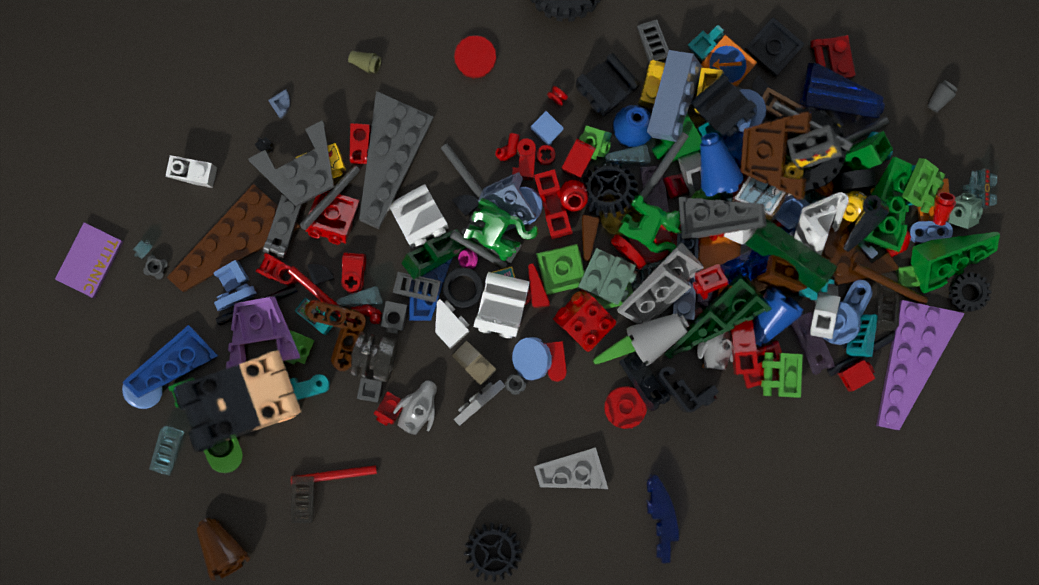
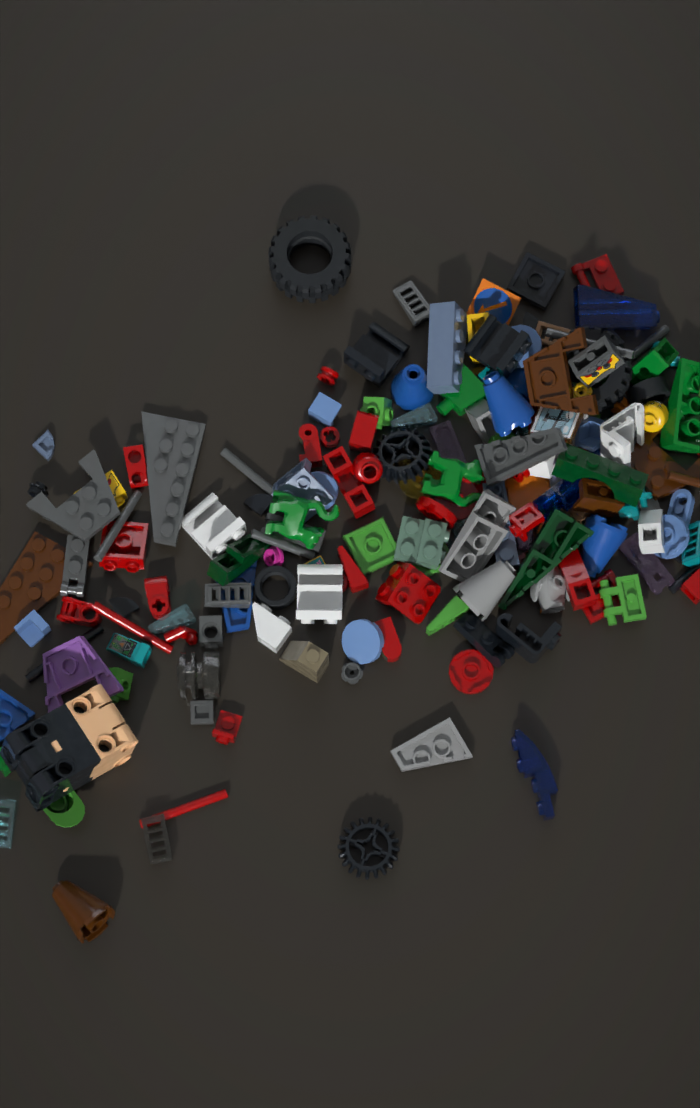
camera: 15 degrees left, 10 degrees down
(243, 293) = (34, 654): medium blue plate -> none
(317, 385) = (144, 721): teal leg -> none
(346, 326) = (165, 653): reddish brown beam -> none
(367, 61) = (124, 384): olive cone -> none
(417, 408) = (256, 719): light grey animal -> none
(475, 56) = (235, 356): red tile -> none
(478, 401) = (317, 697): light grey plate -> none
(509, 150) = (291, 440): red arm -> none
(589, 230) = (390, 496): reddish brown slope -> none
(651, 84) = (420, 342): yellow brick -> none
(663, 166) = (452, 418): dark grey bar -> none
(676, 186) = (469, 437): dark red tile -> none
(704, 43) = (465, 292): teal plate -> none
(867, 221) = (672, 422): black piece -> none
(869, 252) = (681, 459): sand blue tile -> none

